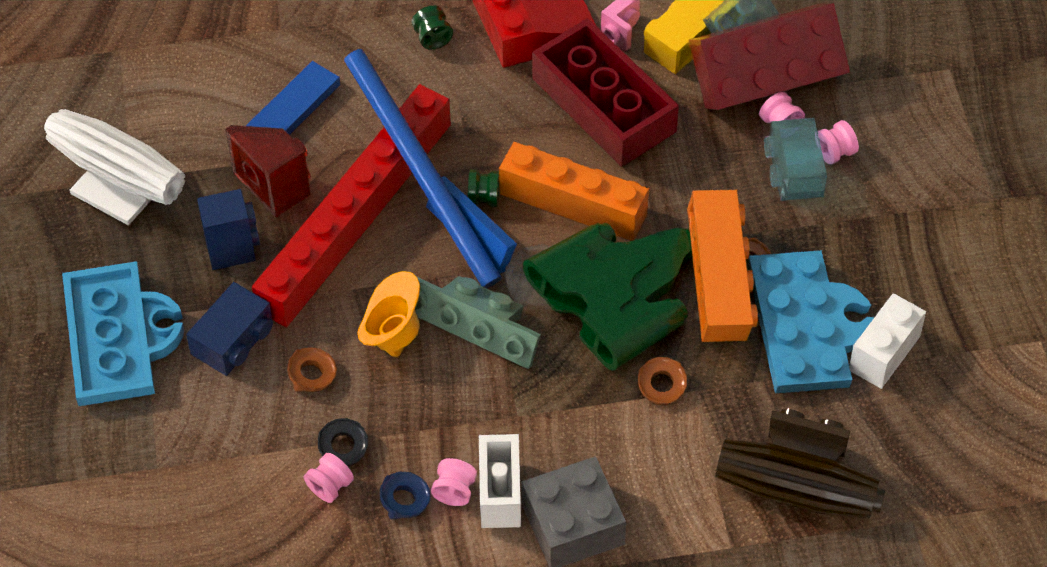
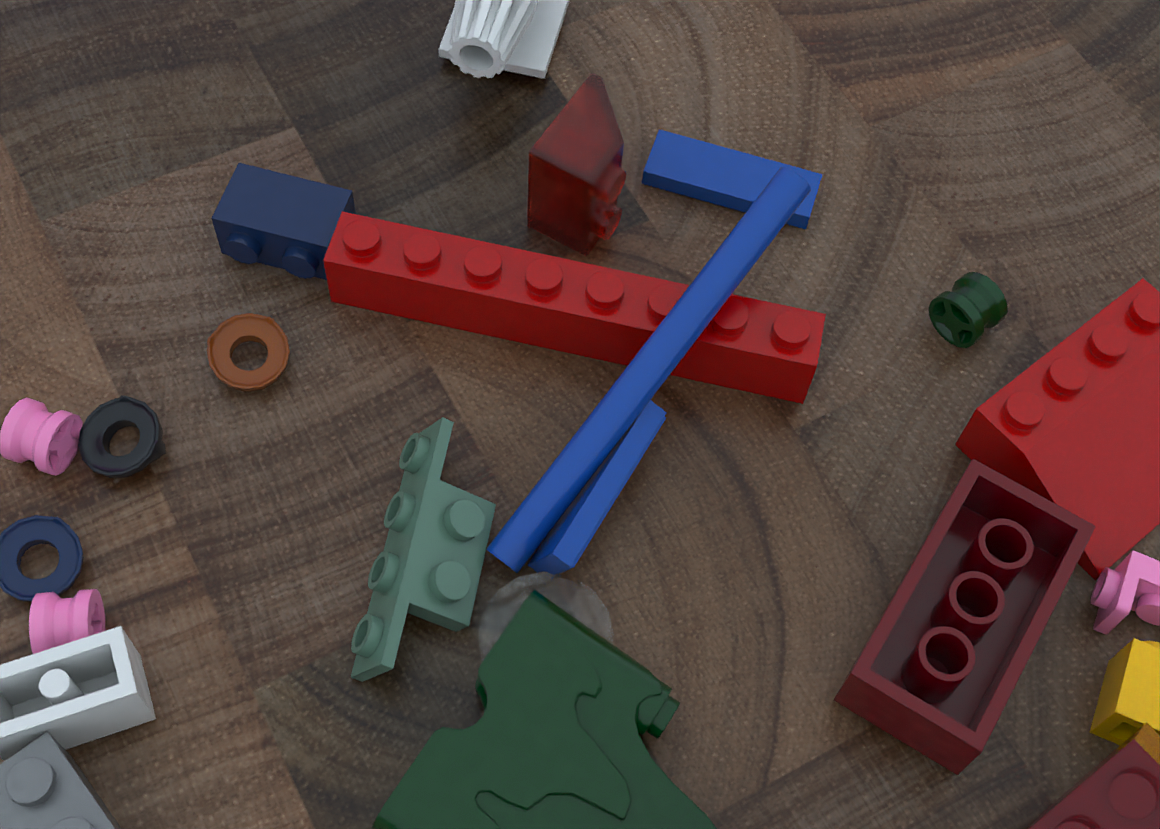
camera: 65 degrees right, 5 degrees up
(116, 332) = (243, 94): dark azure plate -> none
(228, 228) = (444, 151): dark blue brick -> none
(391, 314) = (365, 428): light orange piece -> none
(484, 187) = (682, 484): dark green wheel -> none
(573, 190) = (733, 635): orange brick -> none

